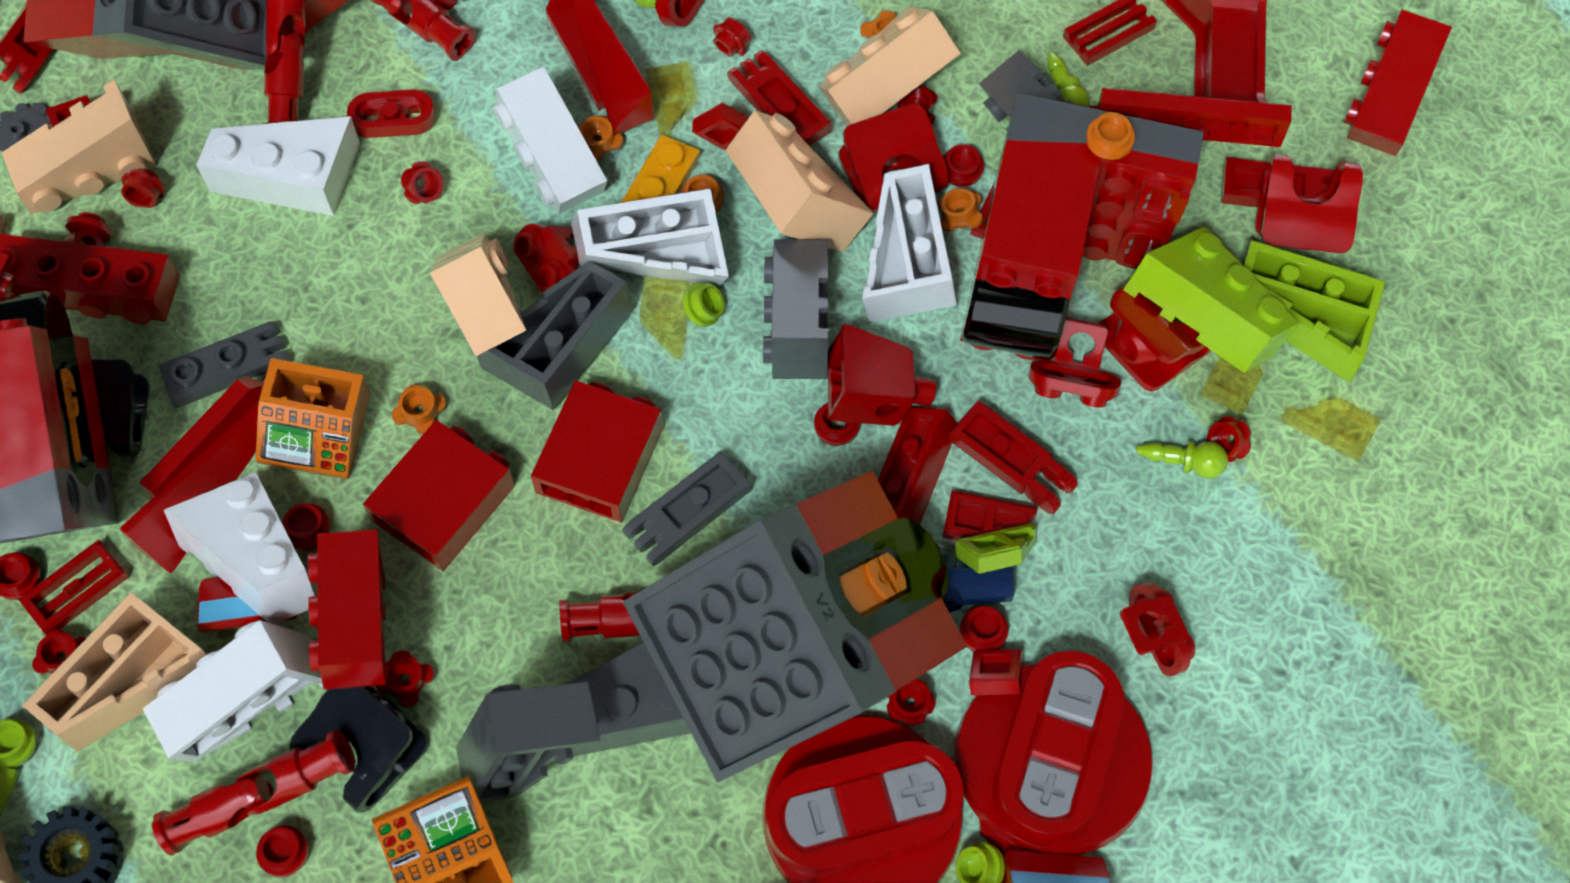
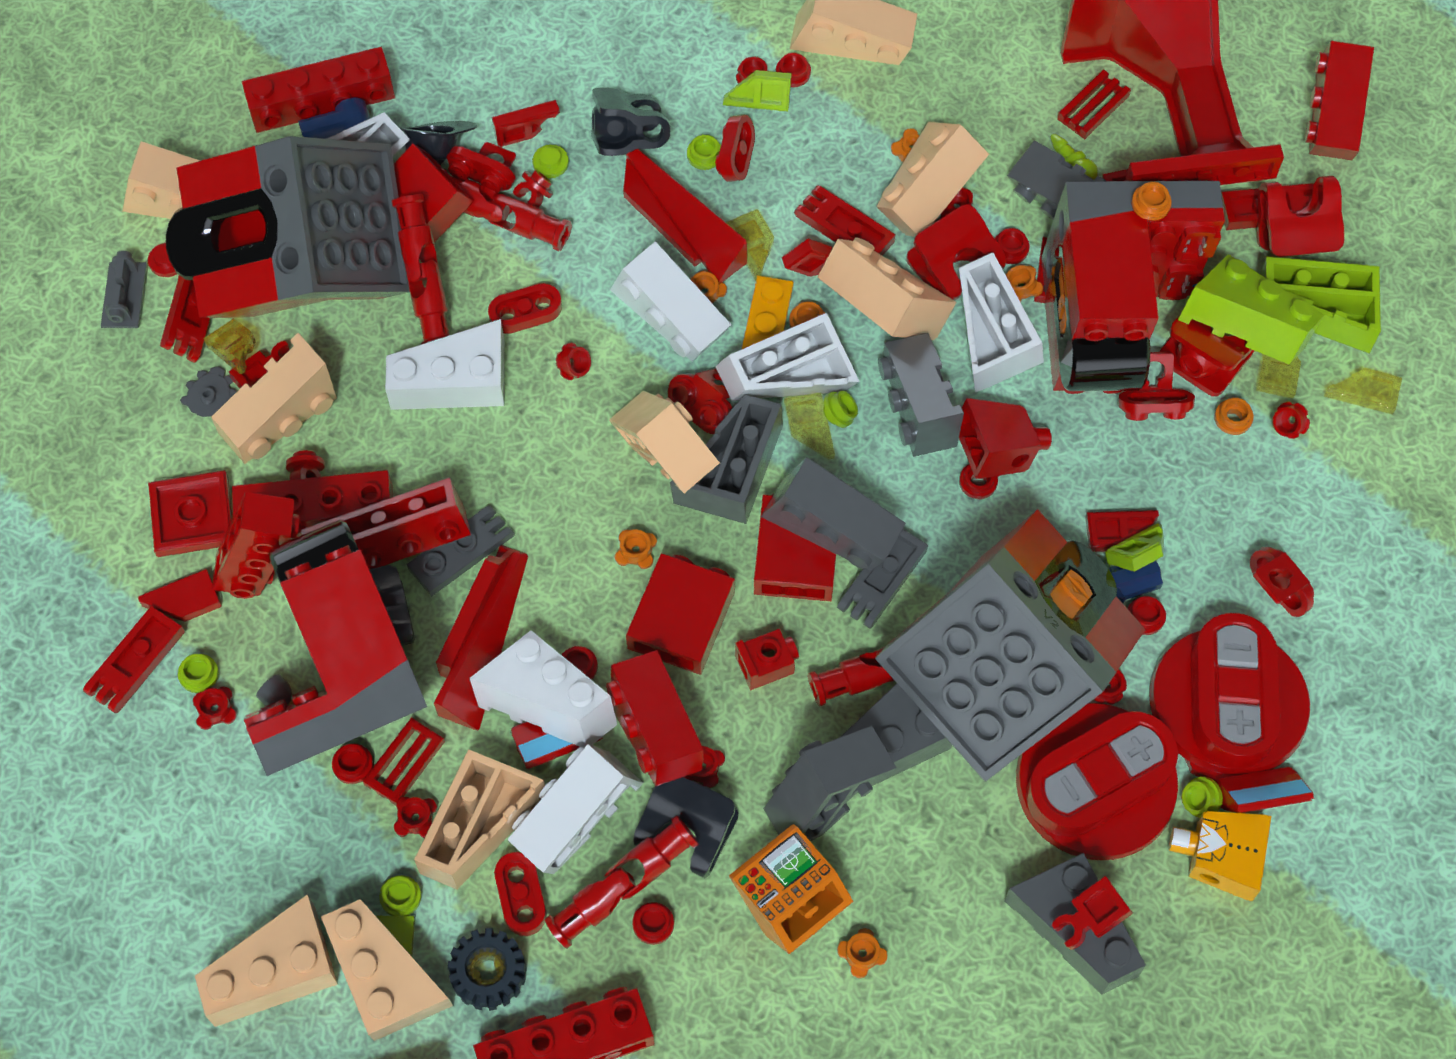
camera: 15 degrees left, 0 degrees up
(60, 80) = (232, 344): none -> clear yellow tile
(140, 778) = (521, 894): none -> red plate
(142, 188) = (334, 415): red plate -> none
(155, 319) = (406, 523): none -> red brick
(310, 418) = (555, 577): orange slope -> none
(514, 585) = (763, 670): none -> red brick
(639, 423) = (833, 516): none -> dark grey wedge
(731, 37) = (787, 180): red plate -> none
(916, 460) = (1051, 488): red slope -> none
(996, 672) = (1168, 645): red tile -> none
(1011, 456) = (1125, 474): red hinge -> none
(1167, 407) = (1234, 406): none -> orange plate
(1205, 459) = (1277, 440): lime bar -> none

